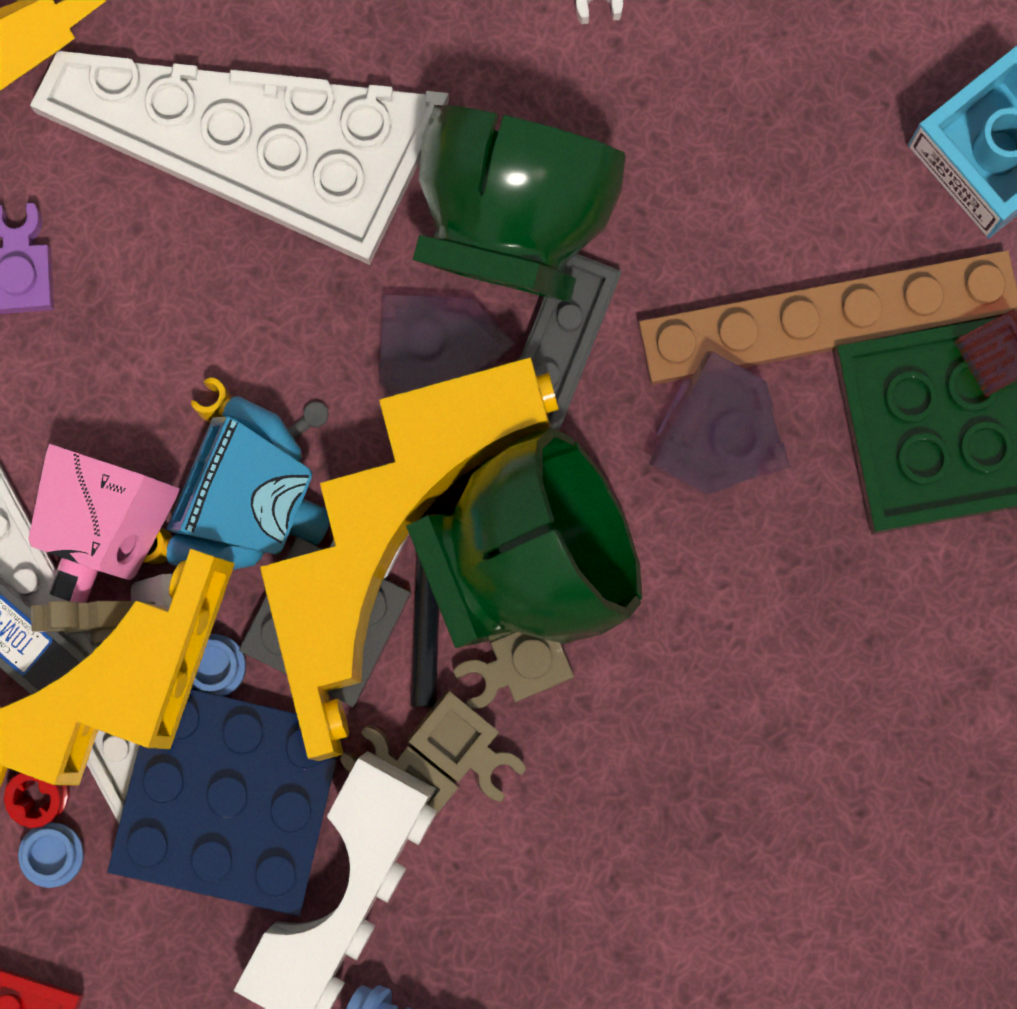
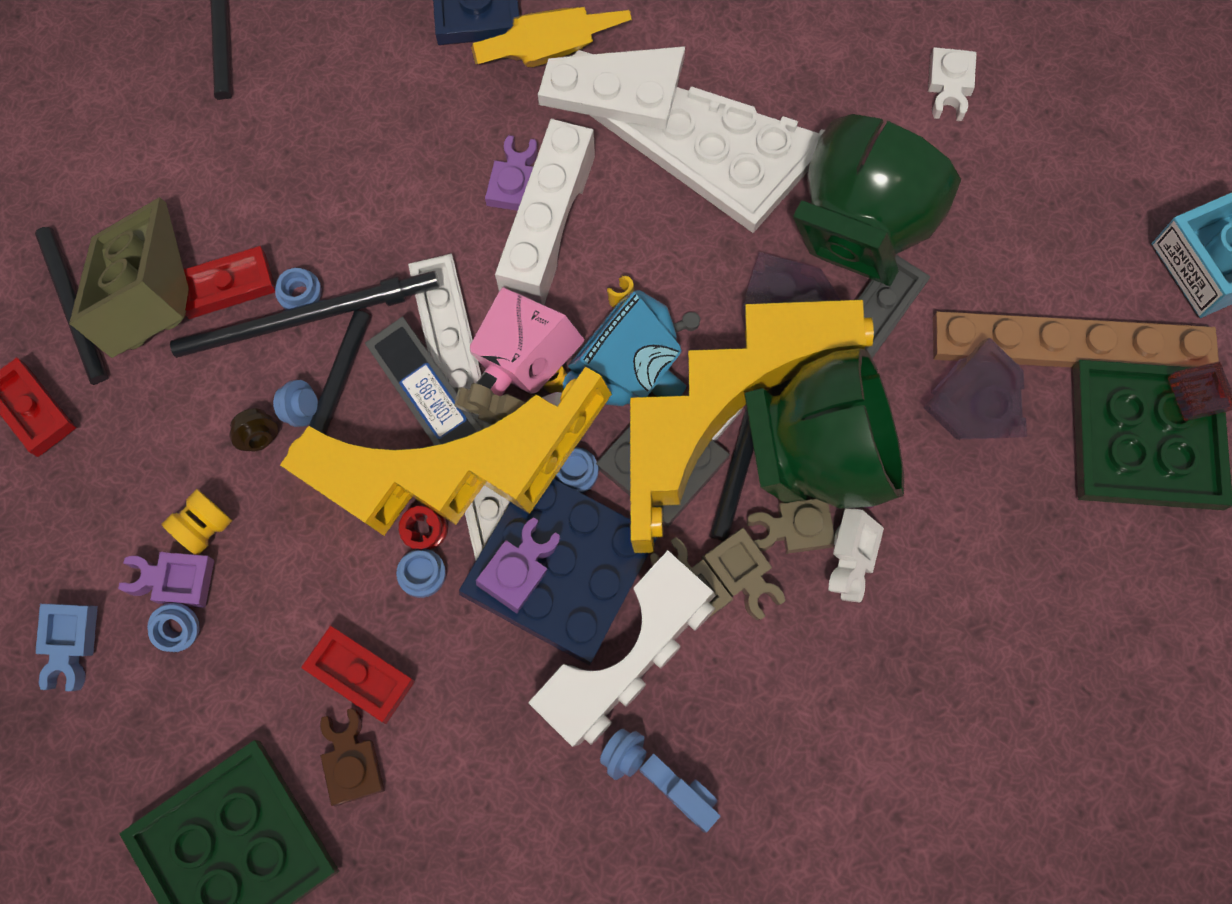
camera: 15 degrees right, 10 degrees down
(77, 284) = (536, 234): none -> white arch
(125, 99) = (615, 86): none -> white wing
(172, 832) = (515, 571): none -> medium lavender plate
(602, 680) = (857, 548): none -> white plate

